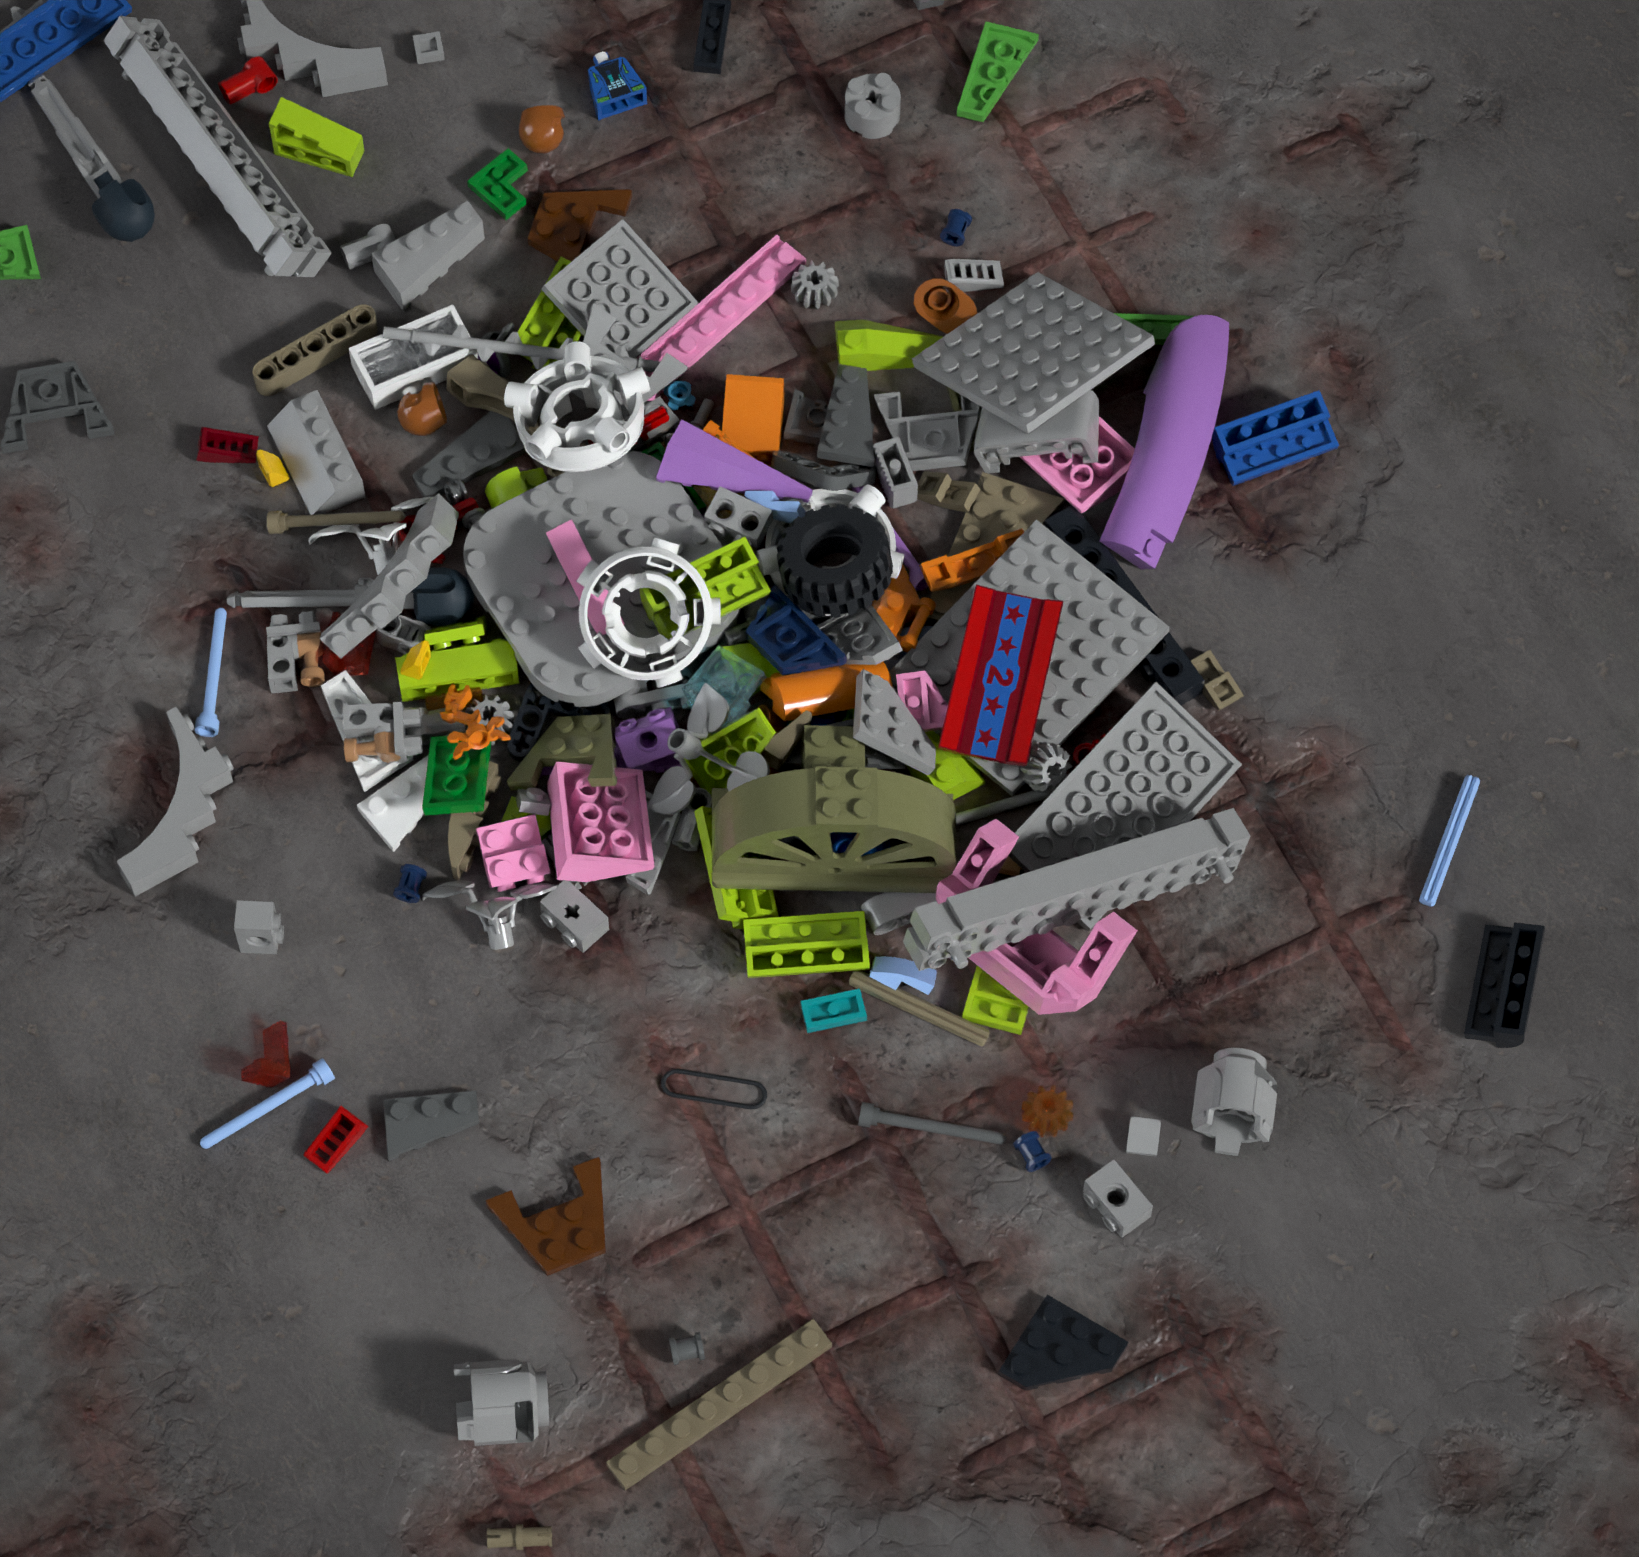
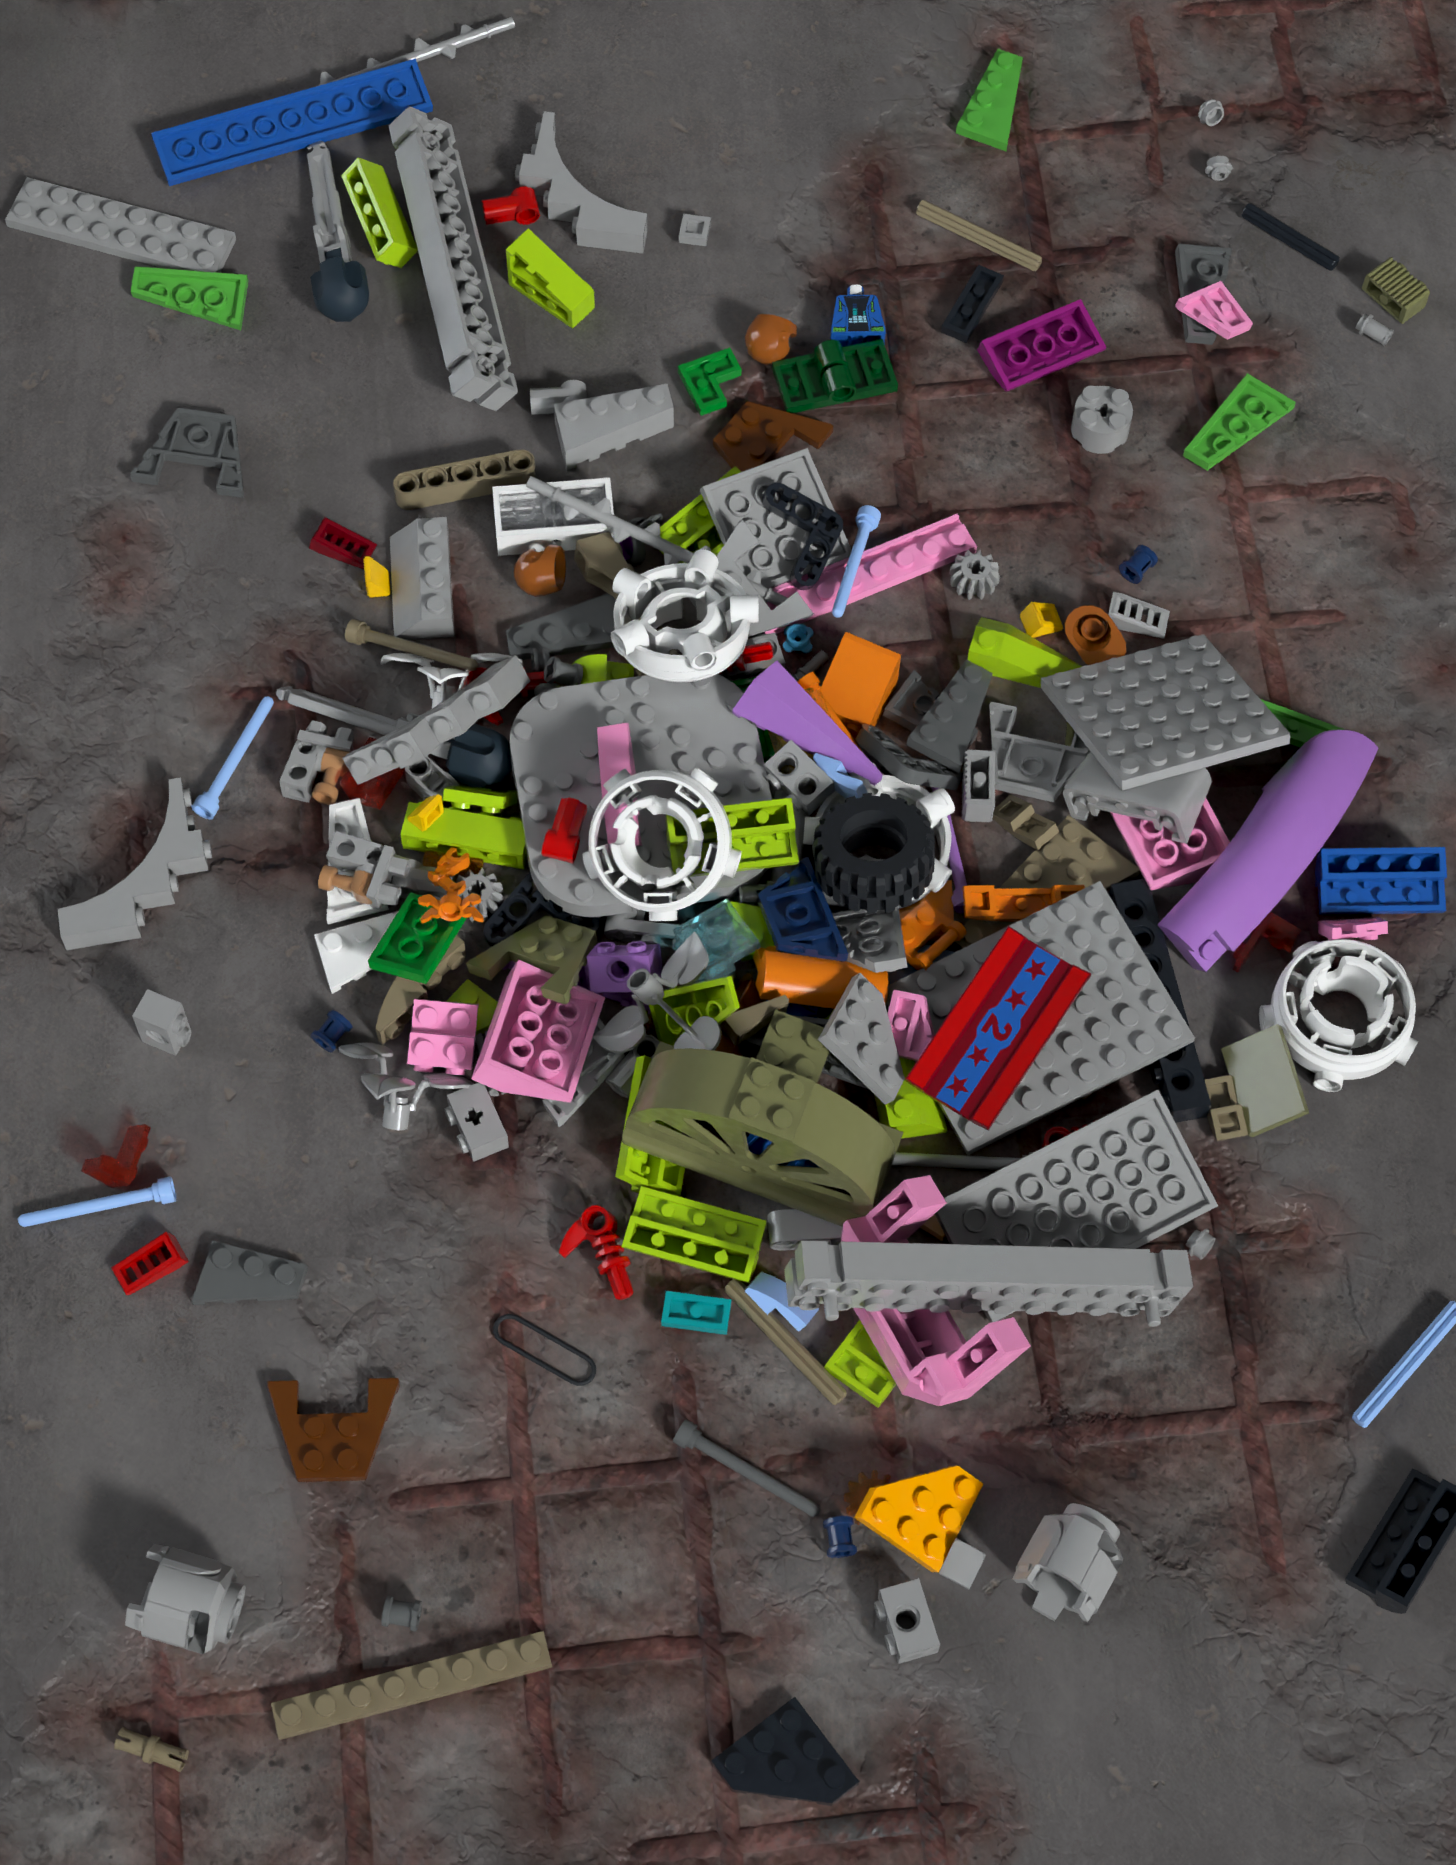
camera: 20 degrees right, 0 degrees up
(127, 125) = (379, 213): none -> lime brick
(484, 495) = (562, 672): none -> dark grey bush
(533, 801) = (483, 991): light grey plate -> none
(554, 637) = (564, 839): none -> red piece
(614, 143) = (834, 375): none -> dark green plate
(660, 294) = (816, 531): none -> black beam
(698, 267) = (866, 520): none -> light blue piece
(729, 979) = (606, 1242): none -> red piece
(790, 55) = (1041, 346): none -> magenta slope
(888, 306) = (1040, 619): none -> yellow slope
(1046, 767) = (1010, 1138): light grey gear -> none
(1094, 1106) = (921, 1512): none -> light orange plate
(1201, 512) = (1275, 929): none -> clear red bracket
(1239, 801) = (1200, 1243): none -> light grey plate
(1241, 643) = (1265, 1080): none -> tile
(1270, 486) = (1353, 928): none -> bright pink wing
(1290, 523) = (1368, 976): none -> white piece

